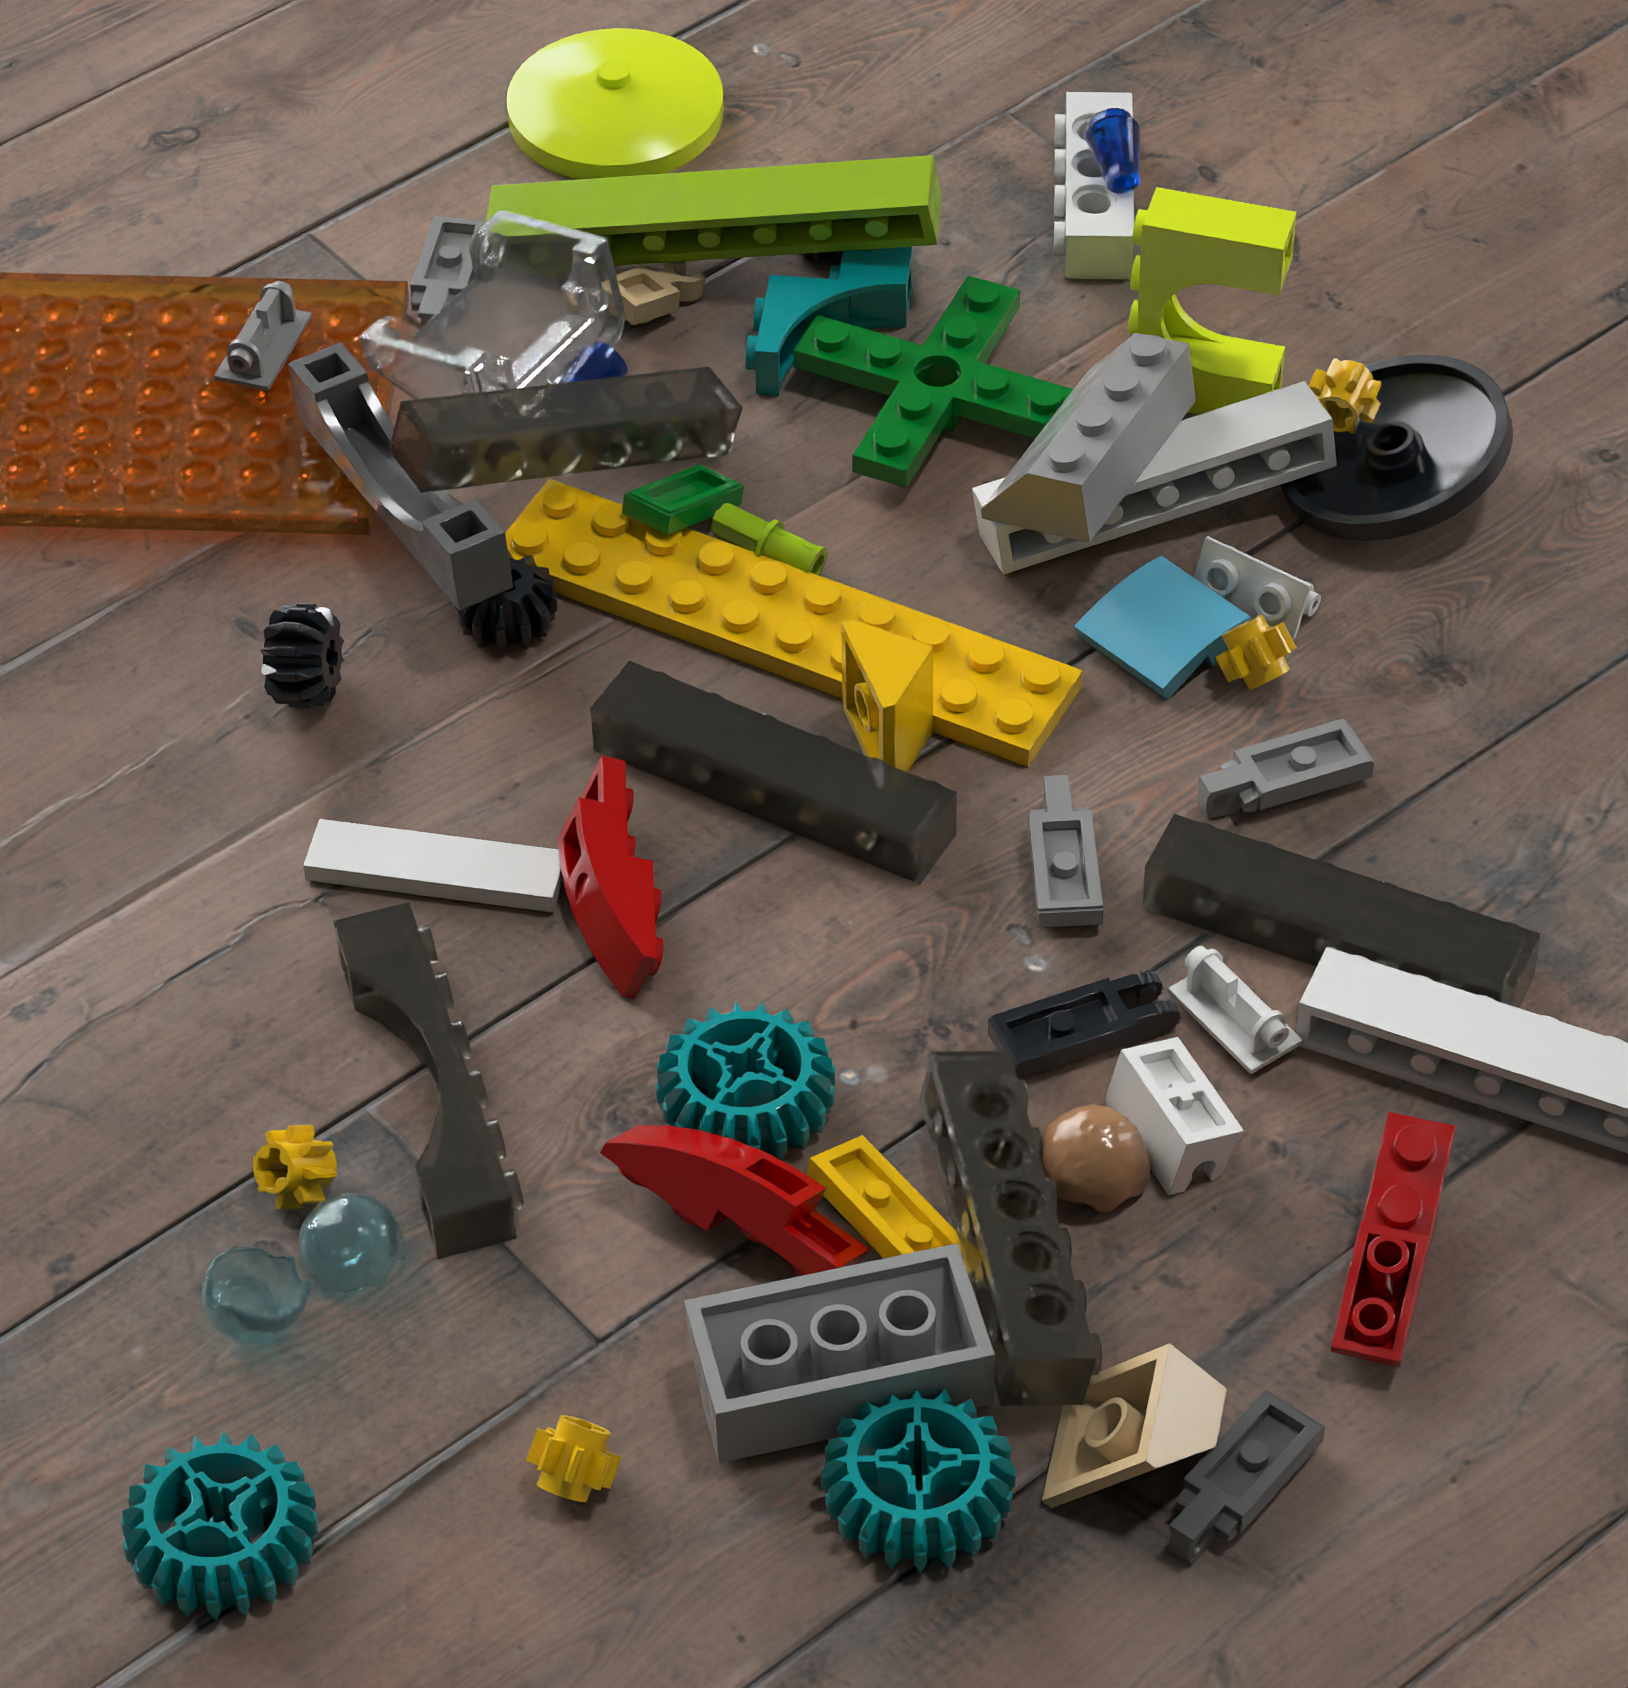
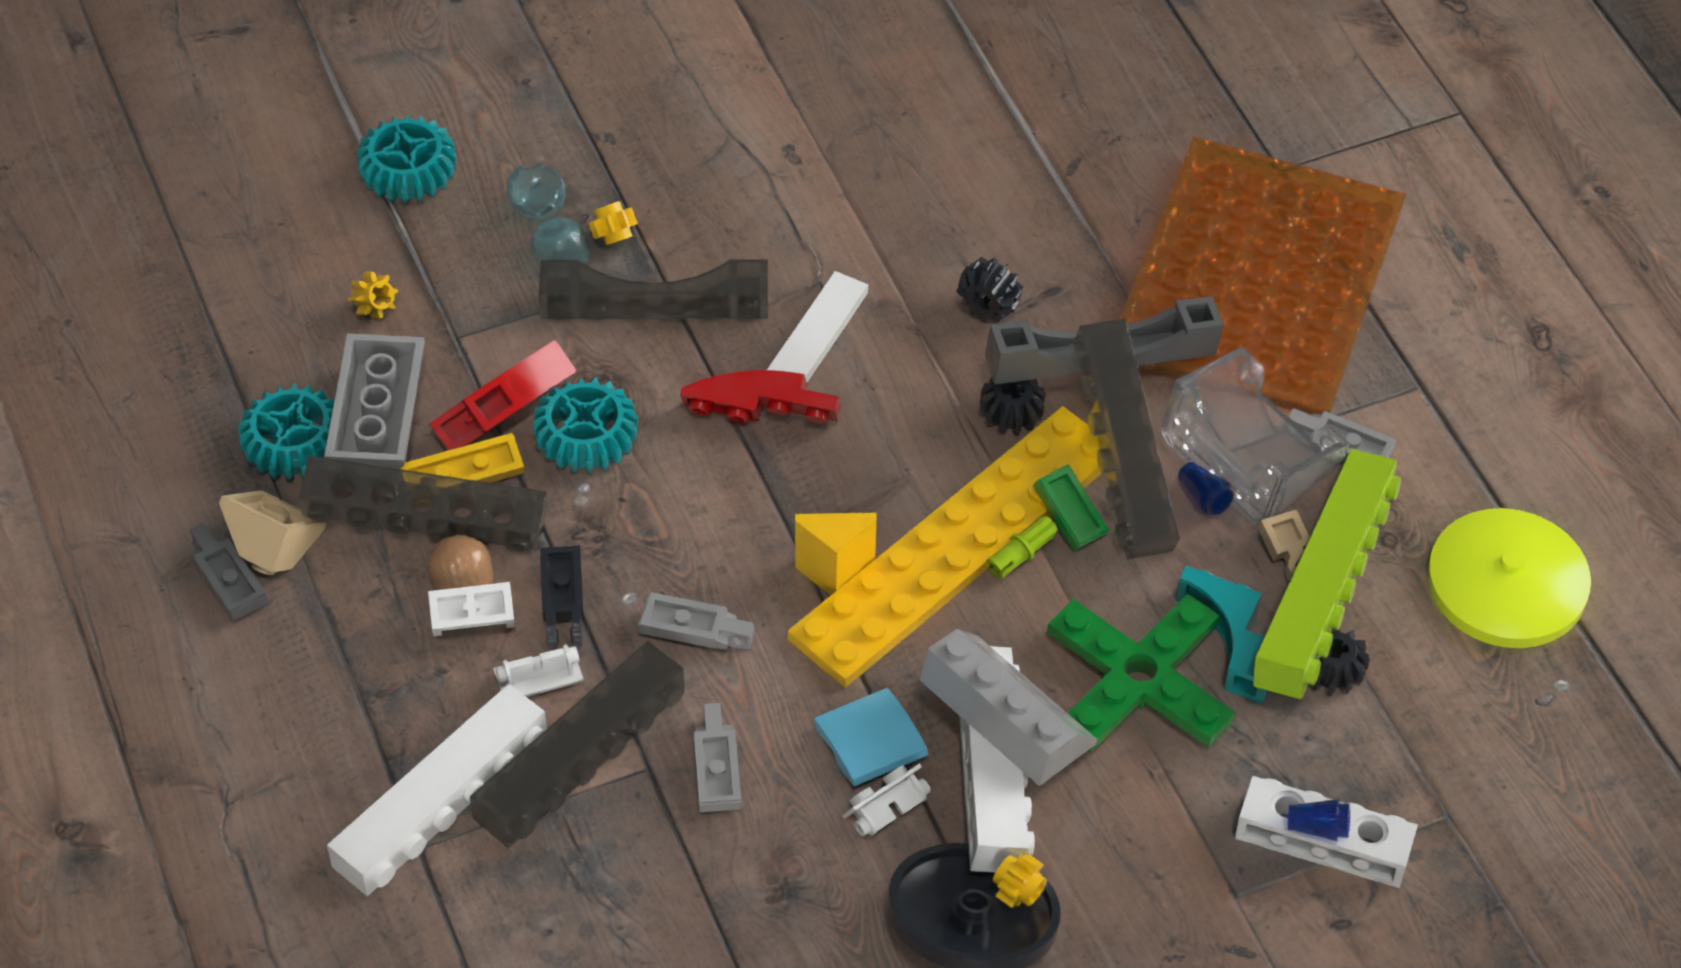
camera: 105 degrees right, 5 degrees up
(264, 340) = (1277, 320): light grey hinge -> none
(775, 771) = (831, 484): clear smoke brick -> none
(1210, 241) = (1108, 797): neon yellow arch -> none
(1255, 652) = (817, 770): yellow gear -> none
(1394, 1240) = (328, 687): red slope -> none

